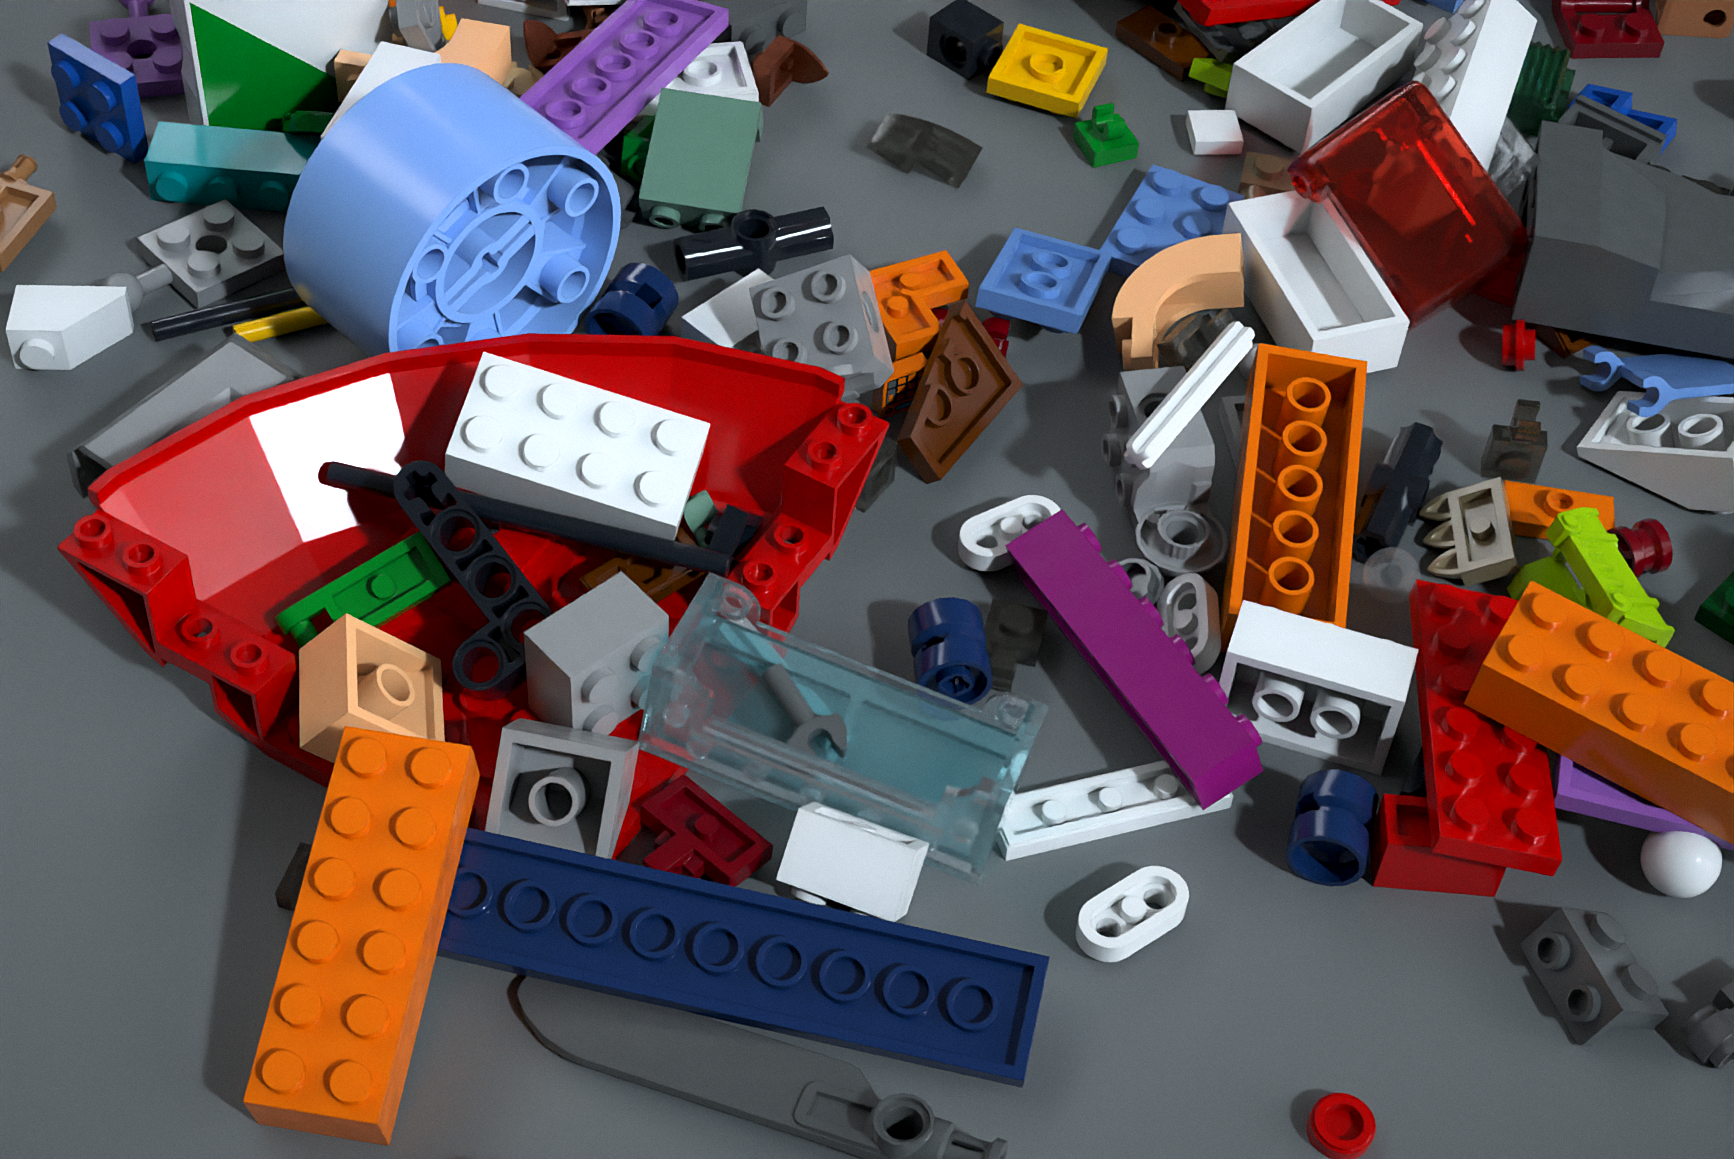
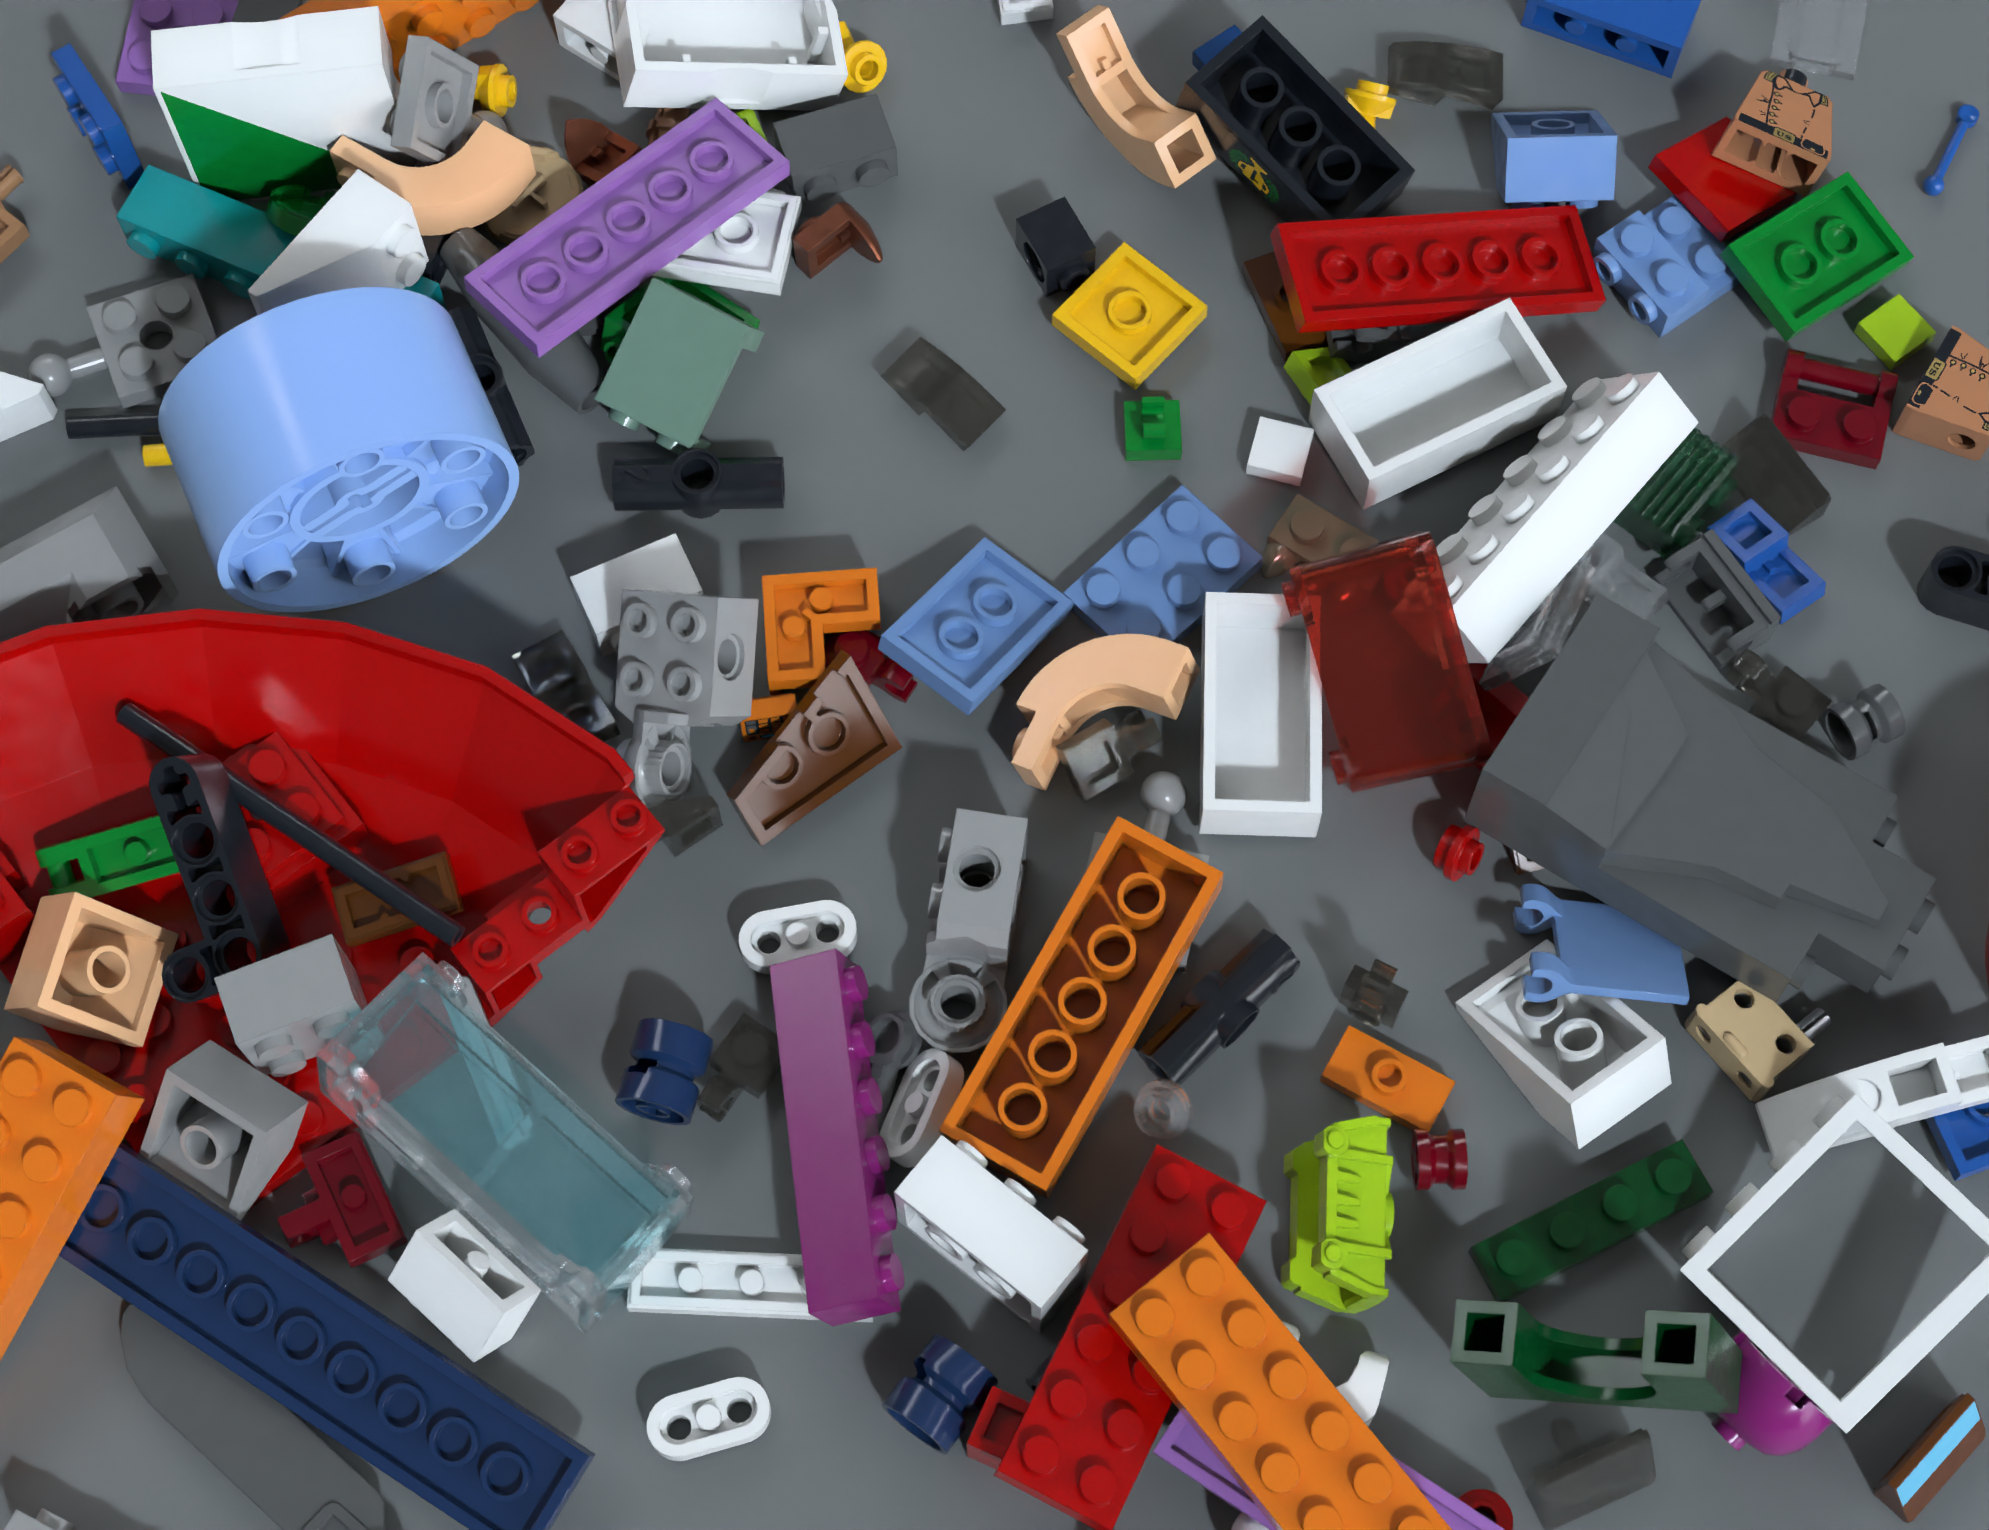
camera: 25 degrees right, 20 degrees up
(574, 449) = (346, 775): white piece -> none
(634, 303) = (518, 559): dark blue wheel -> none
(699, 513) = (468, 852): sand green hand -> none
(732, 530) = (486, 887): black plate -> none
(805, 722) = (474, 1123): dark grey bar -> none
(1189, 395) = (1006, 866): white axle -> none
(1473, 532) = (1279, 1084): dark tan plate -> none
(1601, 63) = (1776, 476): none -> clear smoke slope

